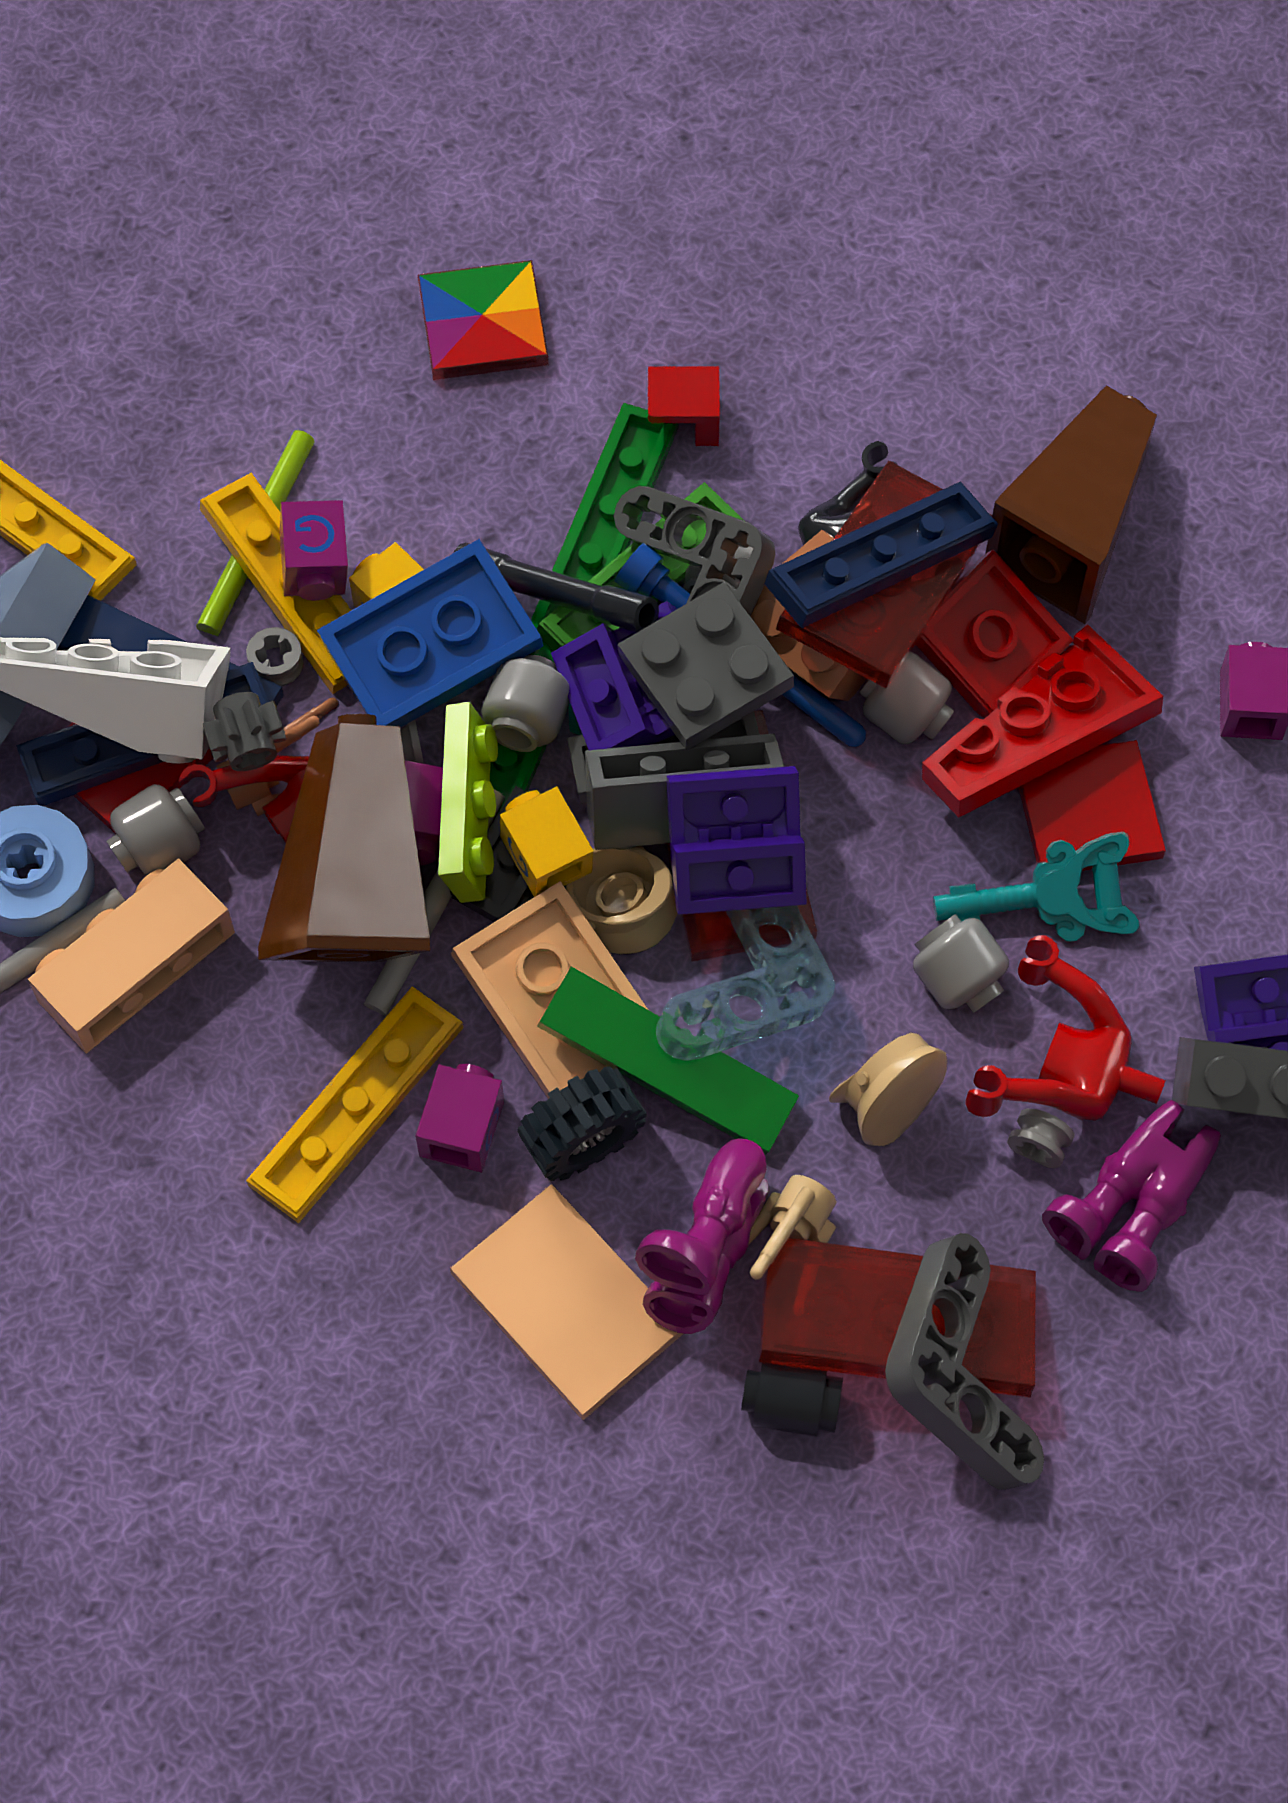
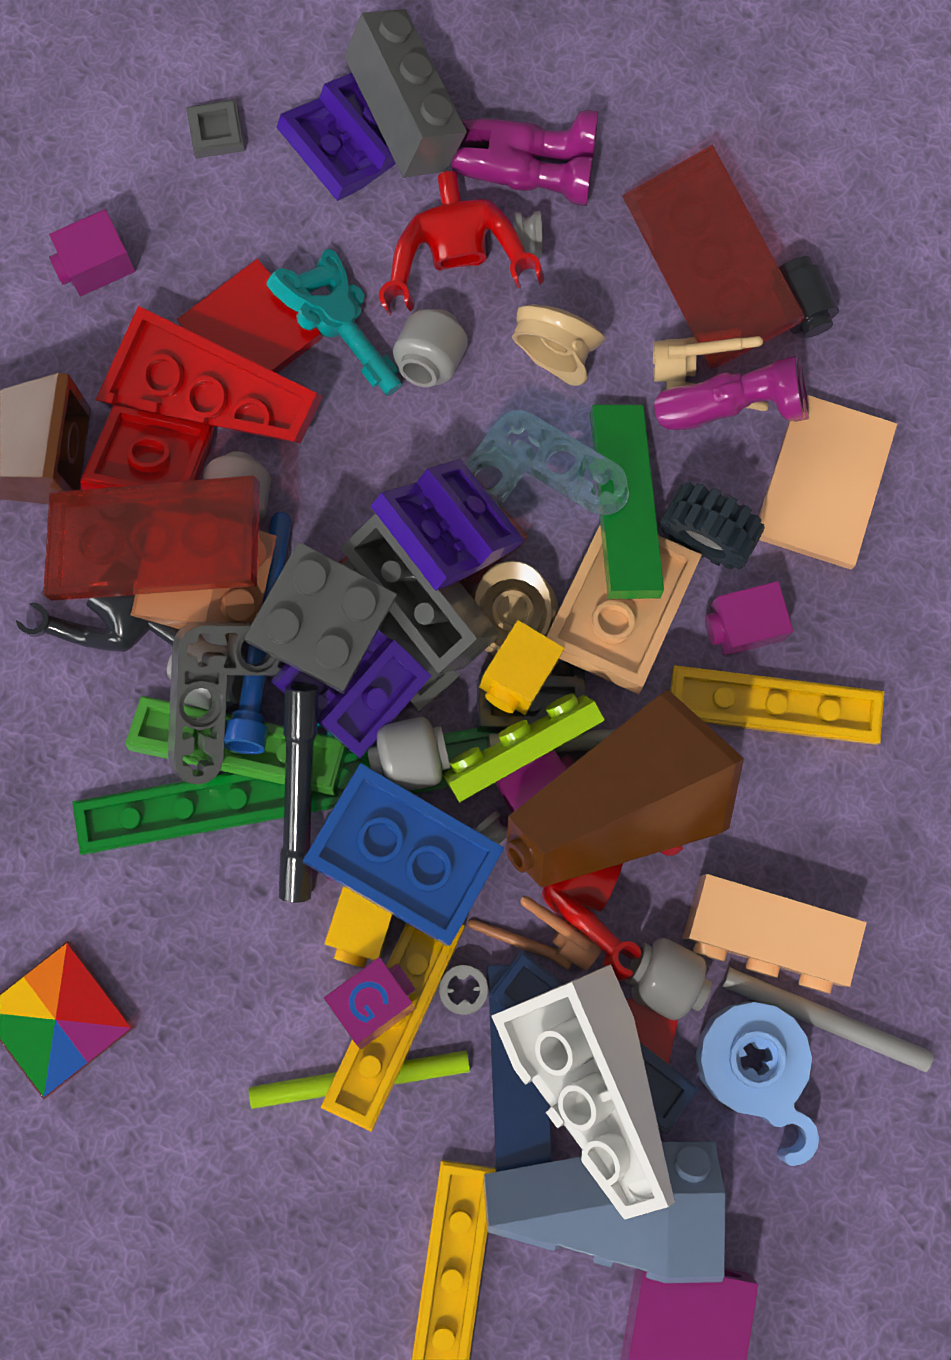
camera: 125 degrees left, 15 degrees up
(244, 731) = (576, 939): dark grey gear -> none
(686, 396) = (57, 798): red panel -> none
(880, 554) = (146, 542): dark blue tile -> none
(928, 1372) = (755, 200): dark grey beam -> none

